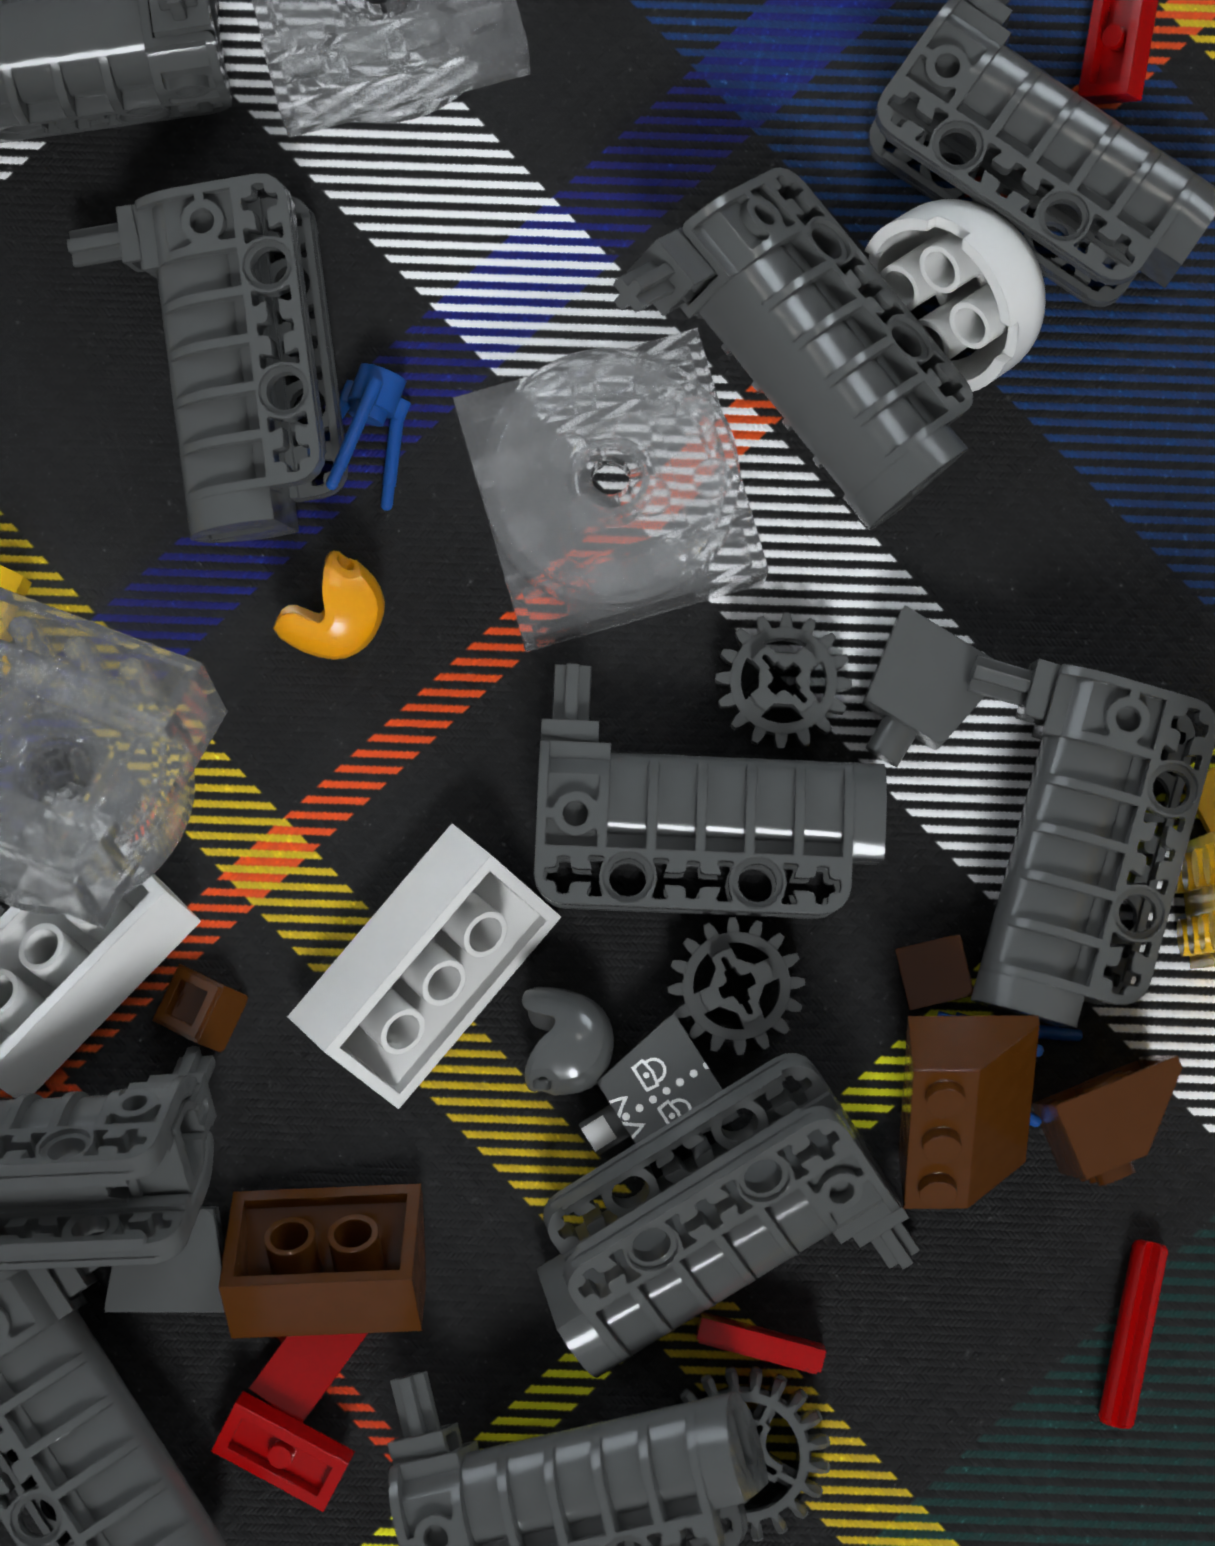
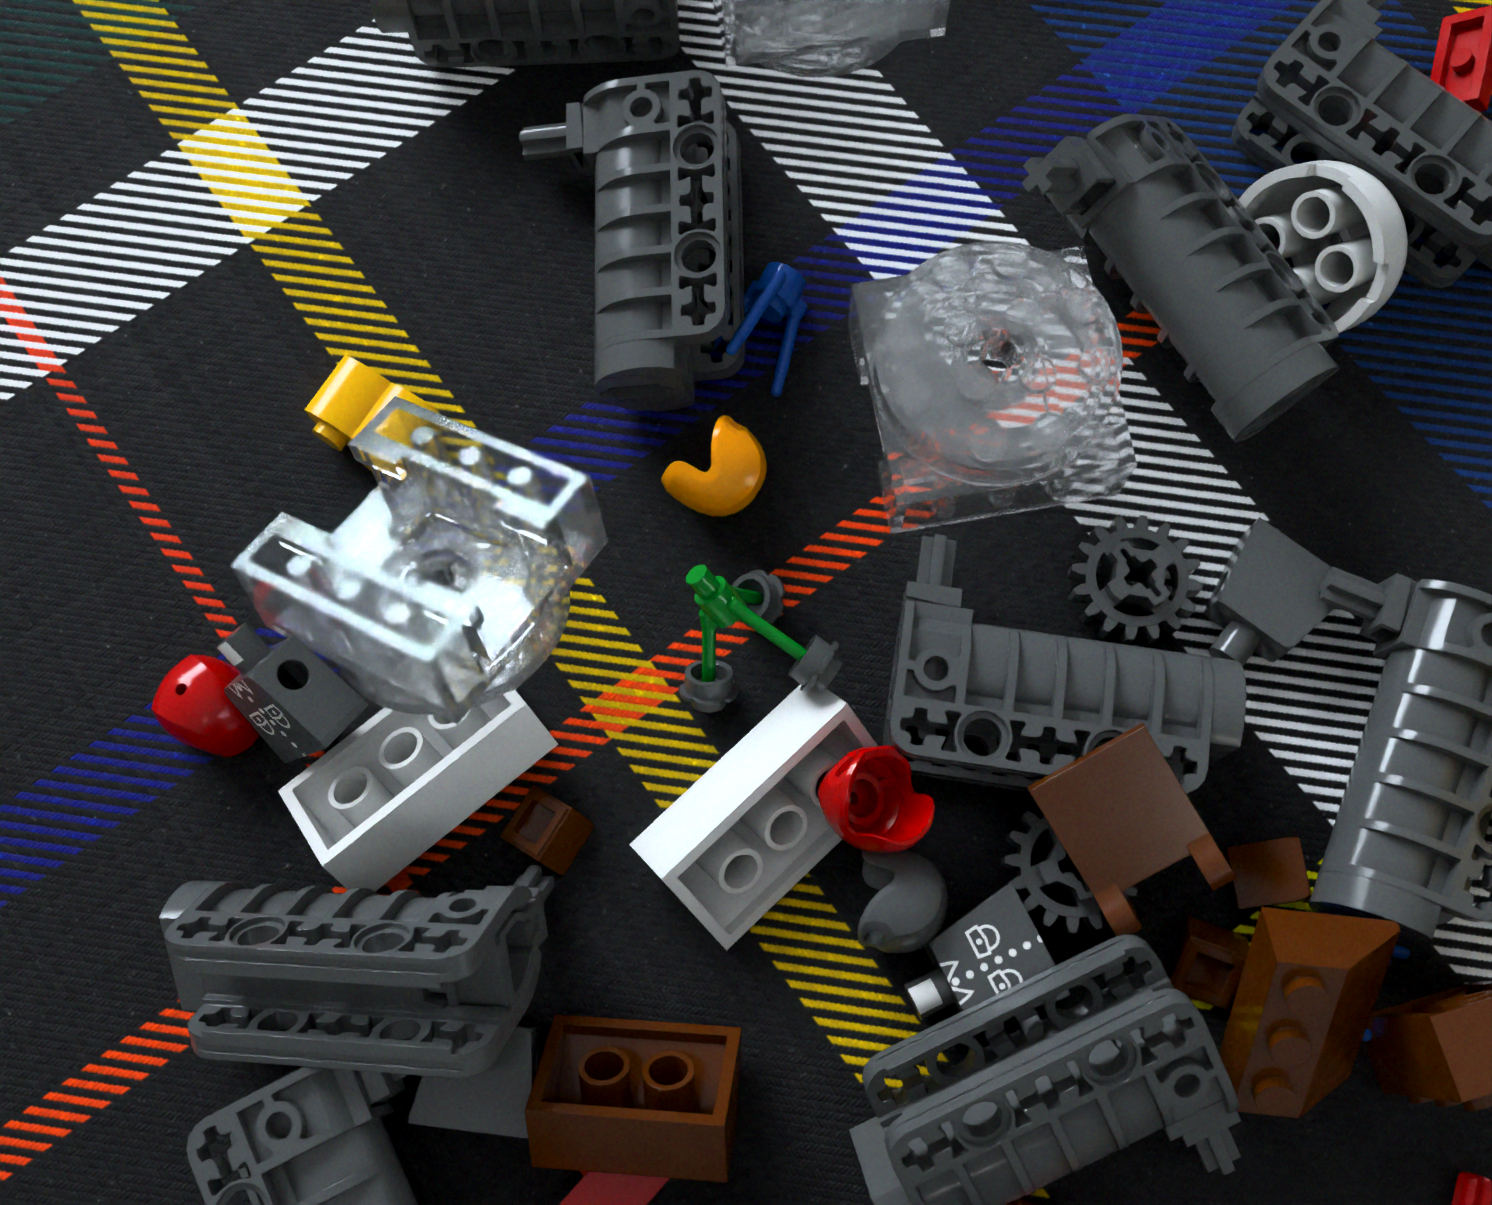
camera: 10 degrees right, 10 degrees down
(381, 752) = (758, 604): none -> plant
(540, 953) = (883, 805): none -> red helmet
(774, 945) = (1125, 821): none -> reddish brown flag
(877, 1067) = (1209, 963): none -> reddish brown slope

